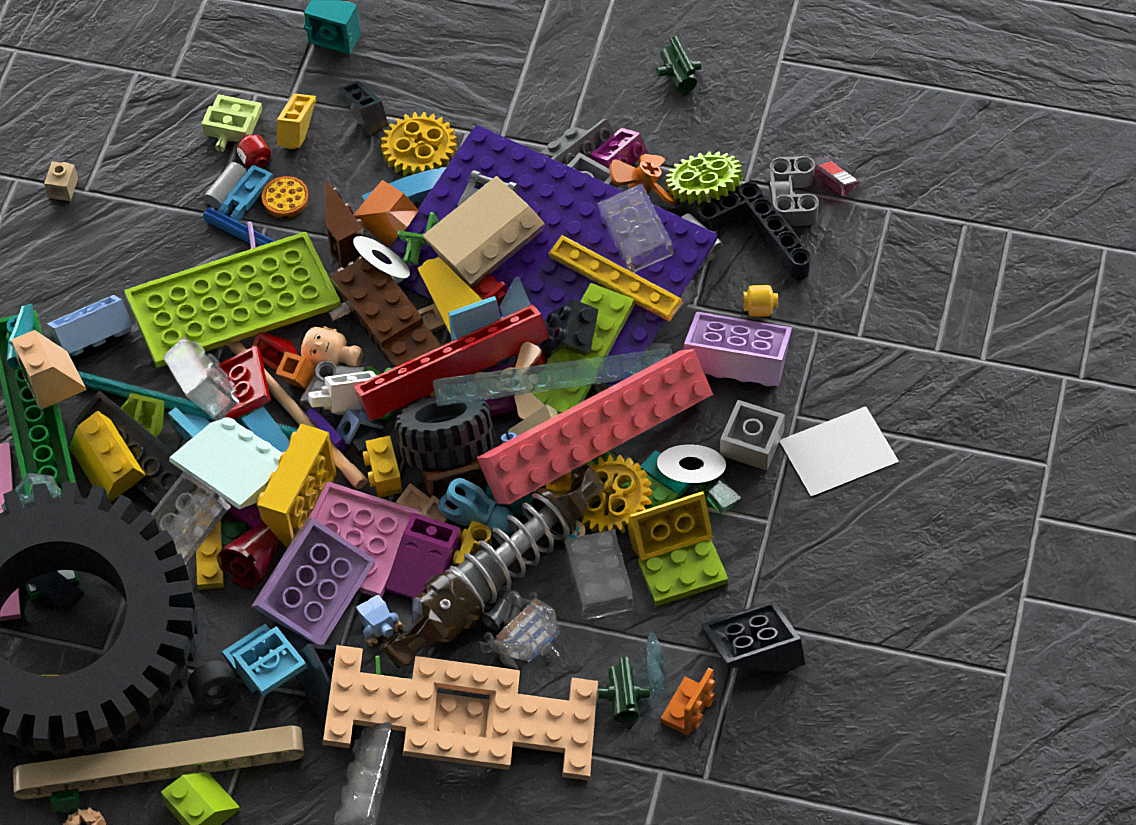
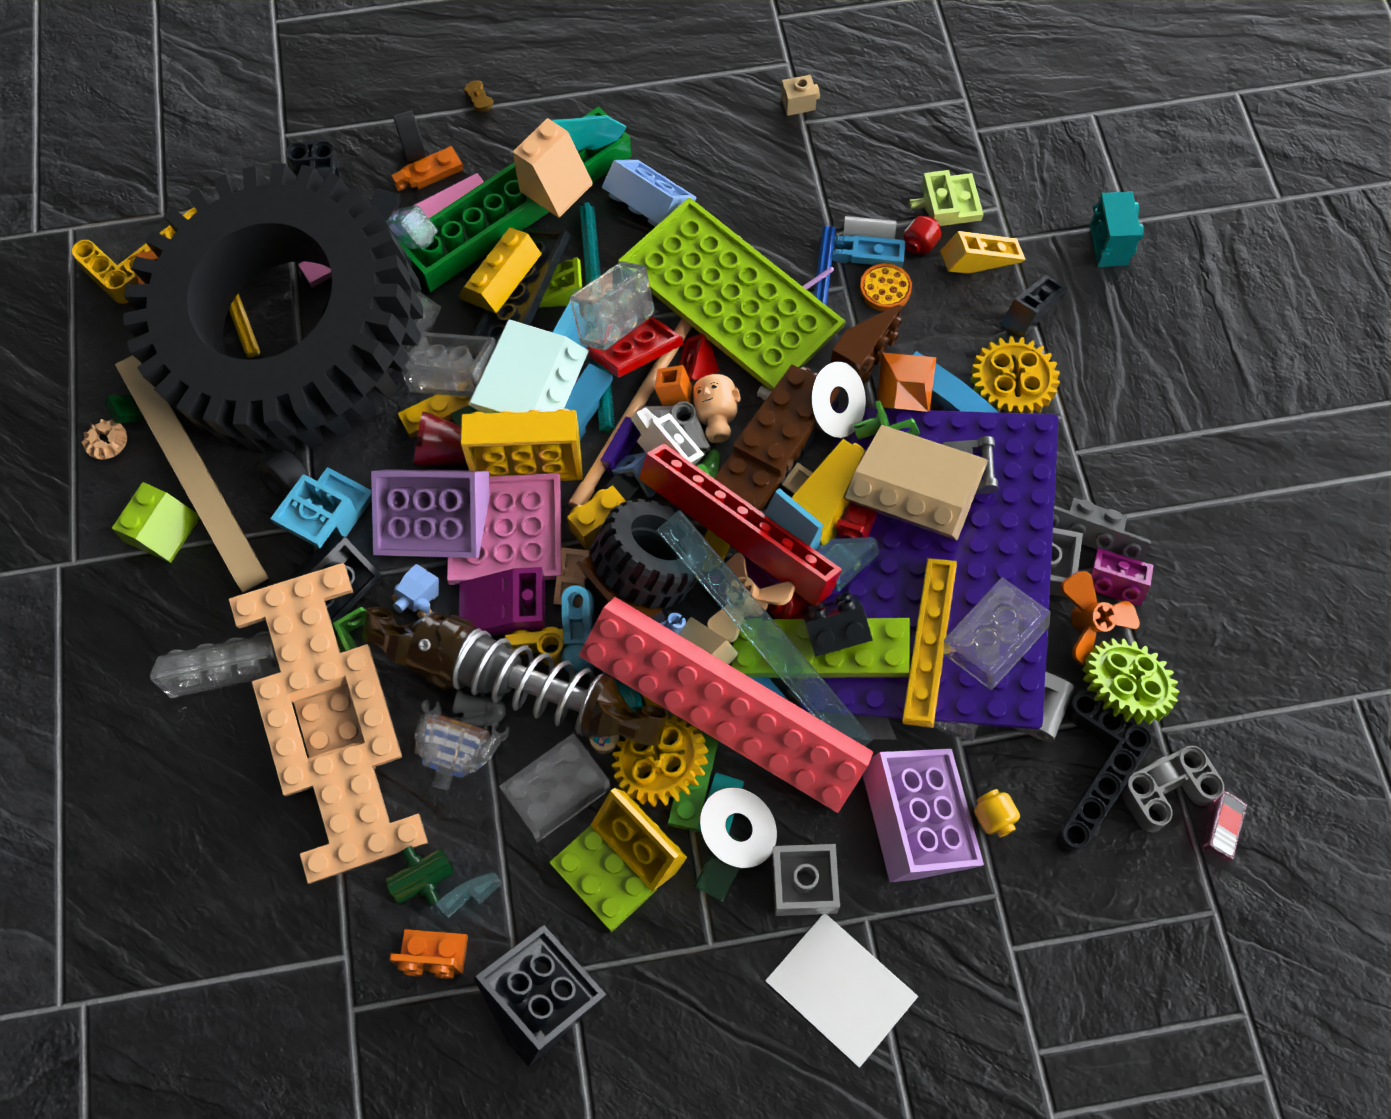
camera: 65 degrees right, 10 degrees up
(678, 66) = (1271, 589): dark green pin -> none

